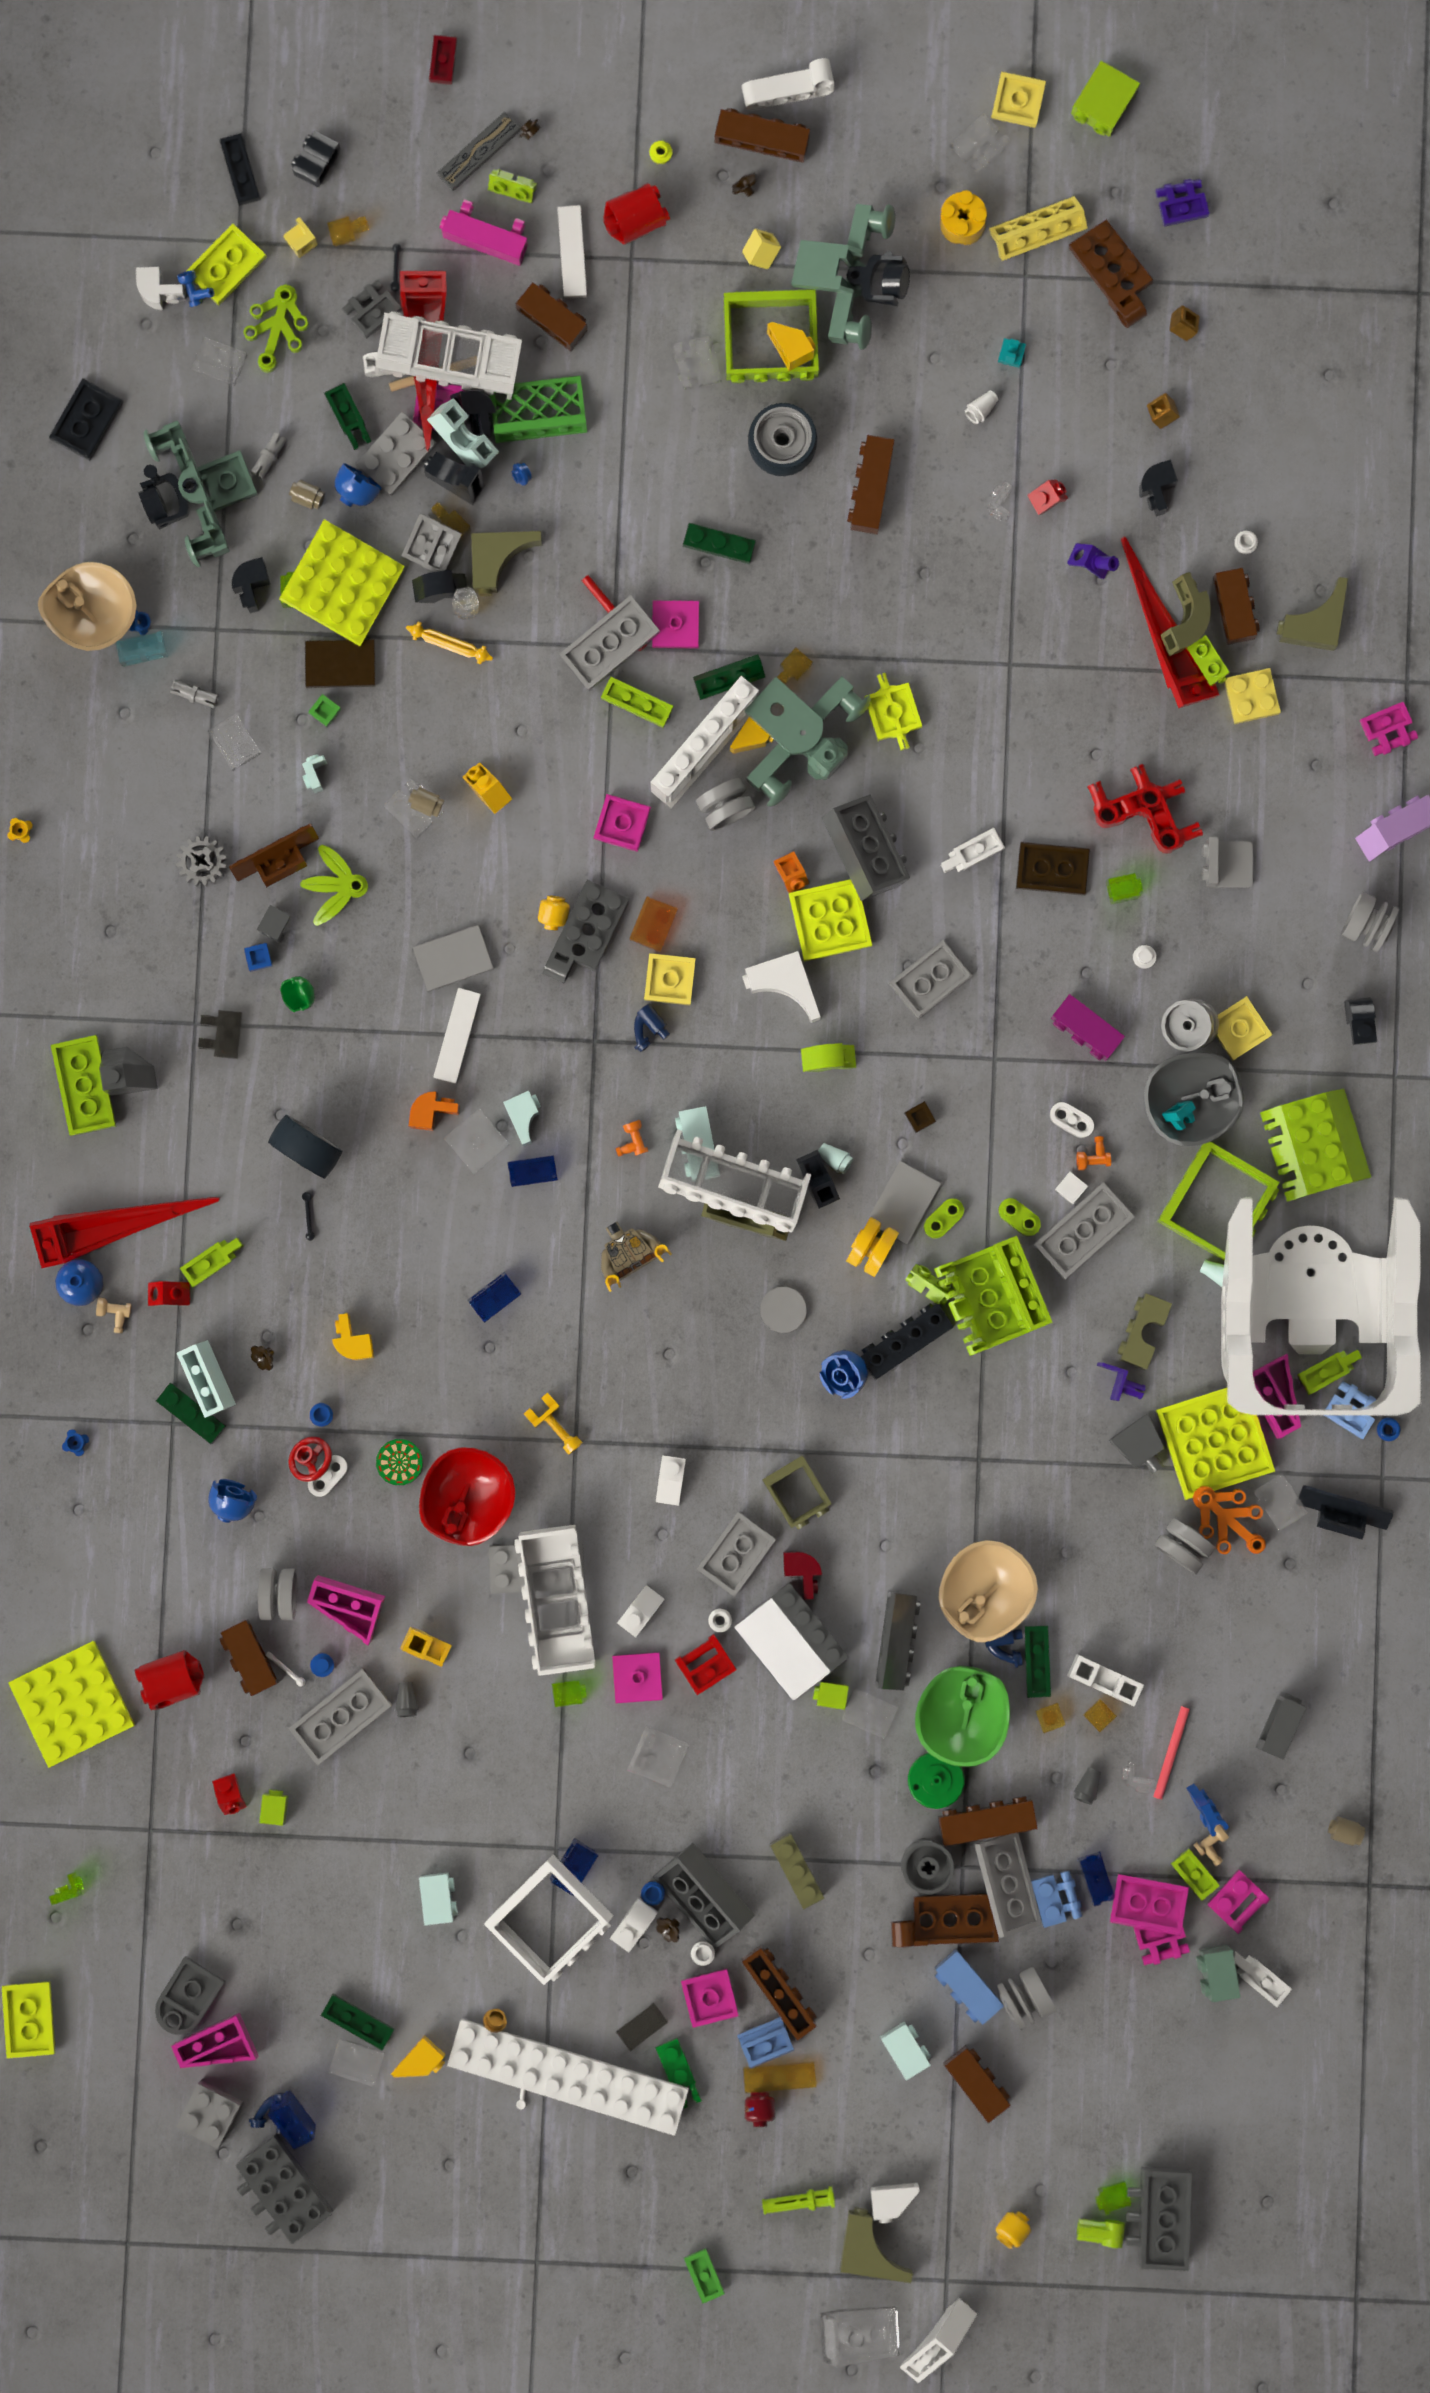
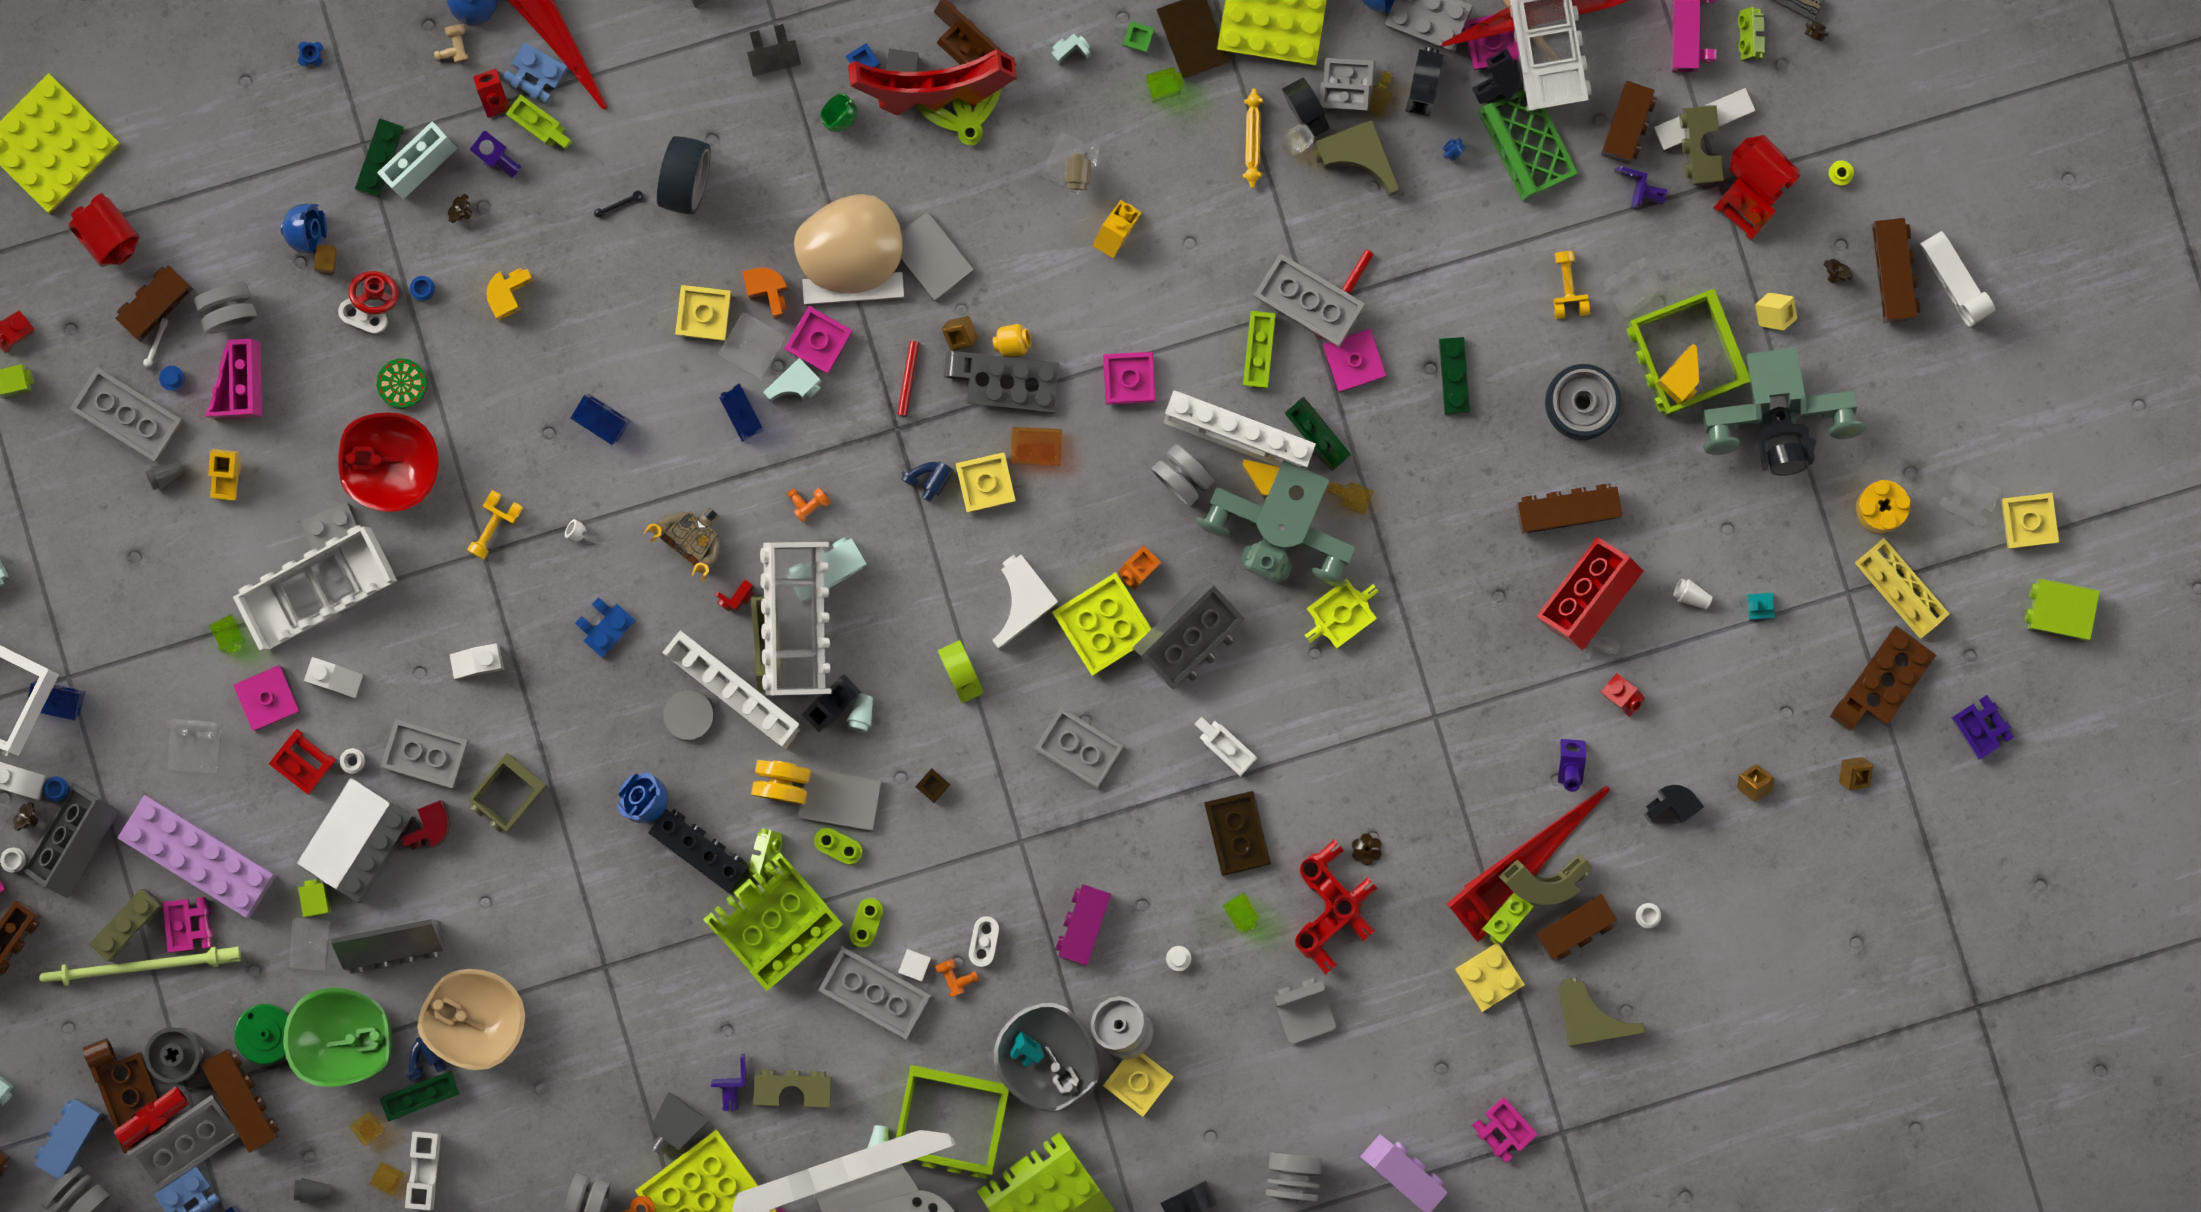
camera: 70 degrees right, 0 degrees up
(159, 1244) = (538, 65): none -> medium blue plate
(227, 1307) = (497, 156): none -> dark purple bracket
(264, 1490) = (325, 259): none -> pearl gold slope
(307, 899) = (935, 88): none -> red arch
(374, 702) = (1164, 84): none -> clear neon green brick
(417, 1023) = (850, 244): none -> tan piece
(432, 1174) = (703, 313): none -> light yellow plate
(449, 423) = (1459, 90): light aqua arch -> none
(492, 1081) = (818, 340): none -> dark pink plate
(529, 956) = (959, 333): none -> pearl gold slope
(553, 1015) = (908, 378): none -> red bar
(574, 257) = (1697, 122): none -> olive arch
(585, 1353) = (574, 530): none -> white hinge
(614, 326) = (1642, 190): none -> dark purple bracket
(660, 238) = (1749, 205): none -> red plate
(683, 1354) = (609, 629): none -> blue plate
(694, 433) = (1565, 259): none -> yellow bar
(694, 1225) = (741, 596): none -> red bracket
(757, 1787) = (197, 856): none -> lavender brick
(777, 1260) = (732, 689): none -> white window
(814, 1824) = (179, 924): none -> dark pink plate
(851, 1803) = (212, 957): none -> yellowish green bar
(952, 491) = (1590, 593): none -> red brick
(976, 1905) = (151, 1117): none -> red piece
(1100, 766) = (1359, 852): none -> dark brown plant

